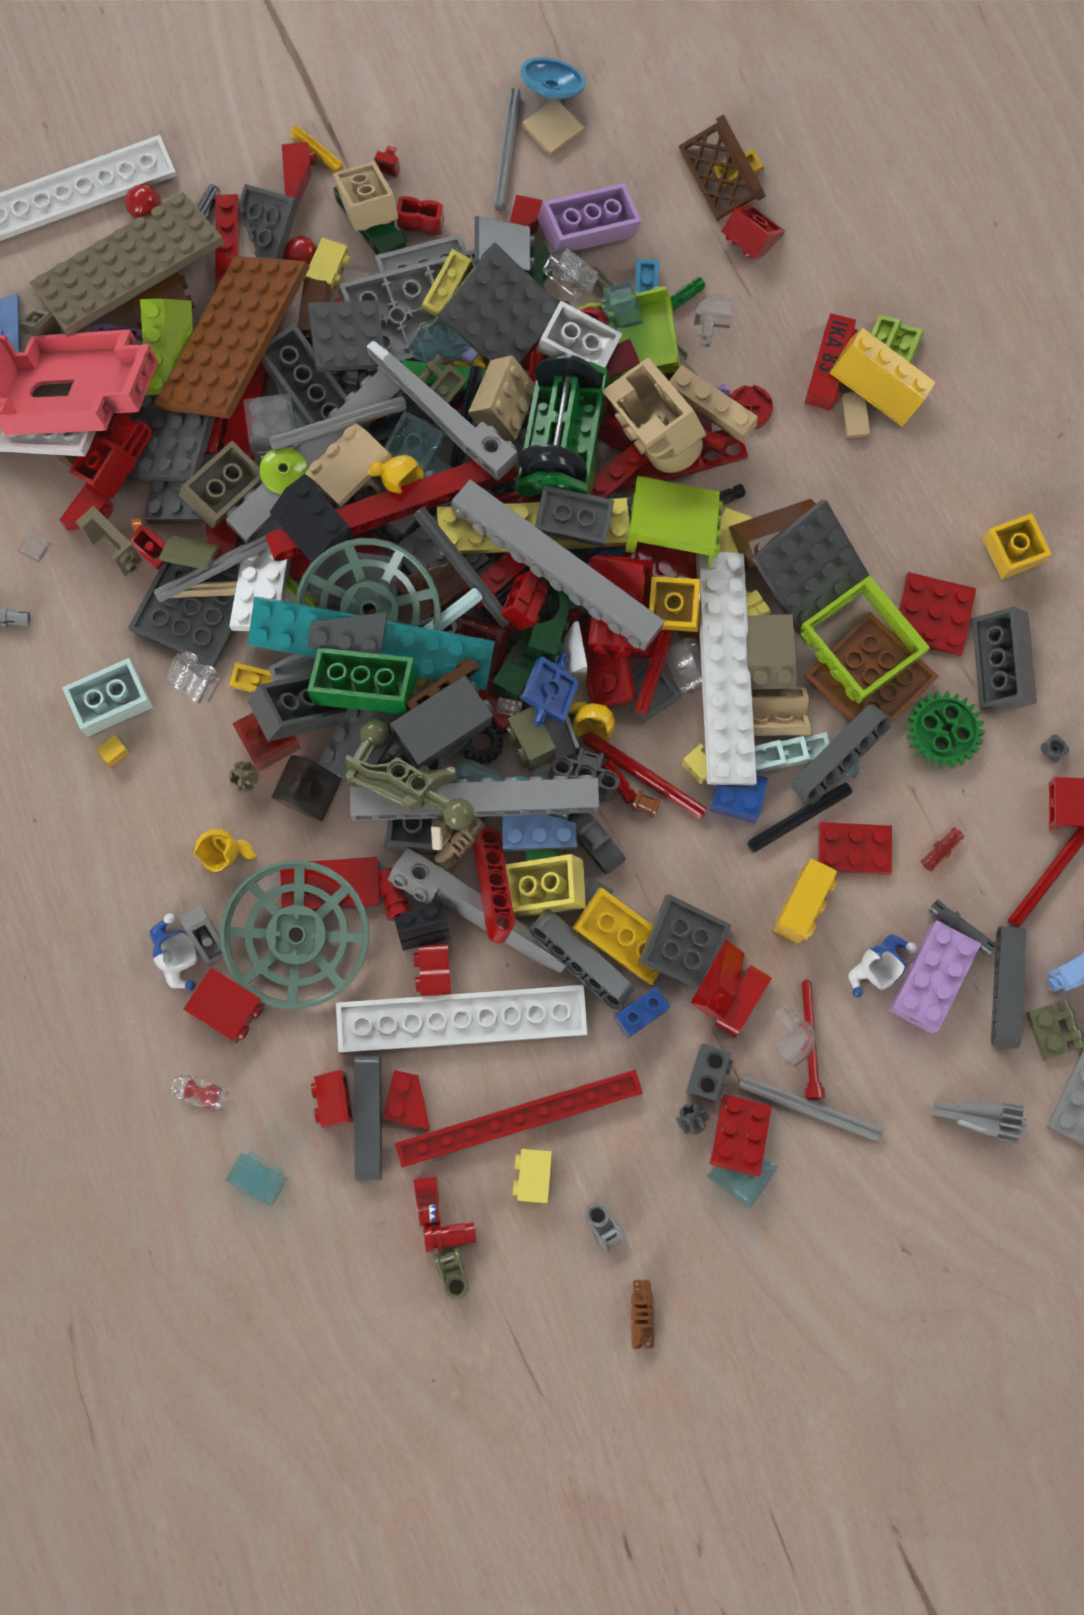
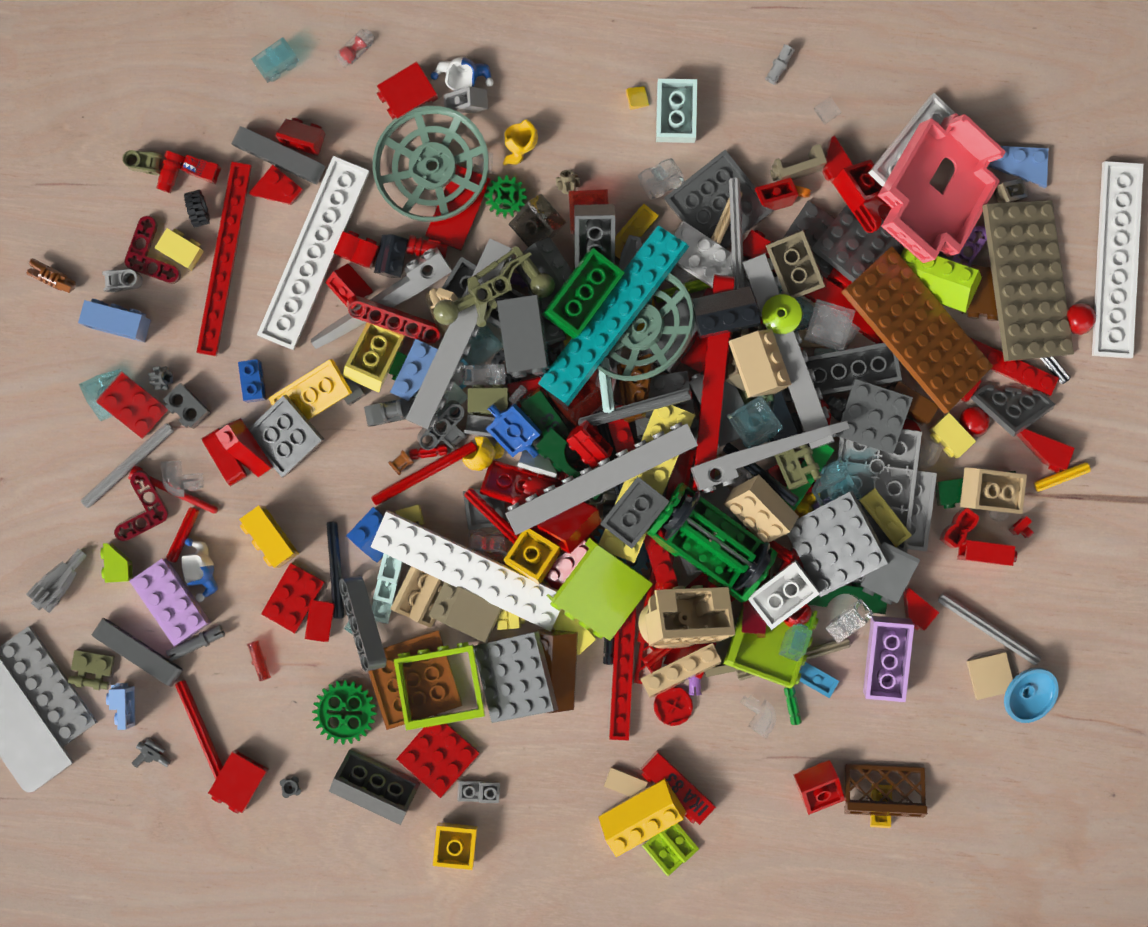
camera: 120 degrees right, 10 degrees up
(189, 552) = (753, 216): olive slope -> none
(289, 846) = (512, 191): none -> green gear
(338, 423) = (798, 372): light grey axle -> none
(354, 633) = (620, 302): dark grey wing -> none
(396, 472) = (733, 394): yellow hair -> none
(432, 174) = (987, 553): none -> red brick
(464, 668) = (552, 354): reddish brown wing -> none
(476, 1177) = (196, 208): none -> black tyre
(480, 960) = (347, 283): none -> red panel
(503, 754) = (483, 374): none -> clear brick
(561, 1219) = (141, 254): none -> dark red beam
(581, 959) = (309, 356): dark grey beam -> none
(655, 1205) = (114, 320): none -> medium blue brick
(758, 463) = (622, 680): none -> red plate
(852, 1054) = (148, 514): none -> dark red beam
(853, 1004) = (182, 534): none -> red axle
(863, 804) = (319, 621): none -> red slope
(926, 1059) = (116, 564): none -> lime slope
(946, 554) = (478, 791): none -> light grey slope

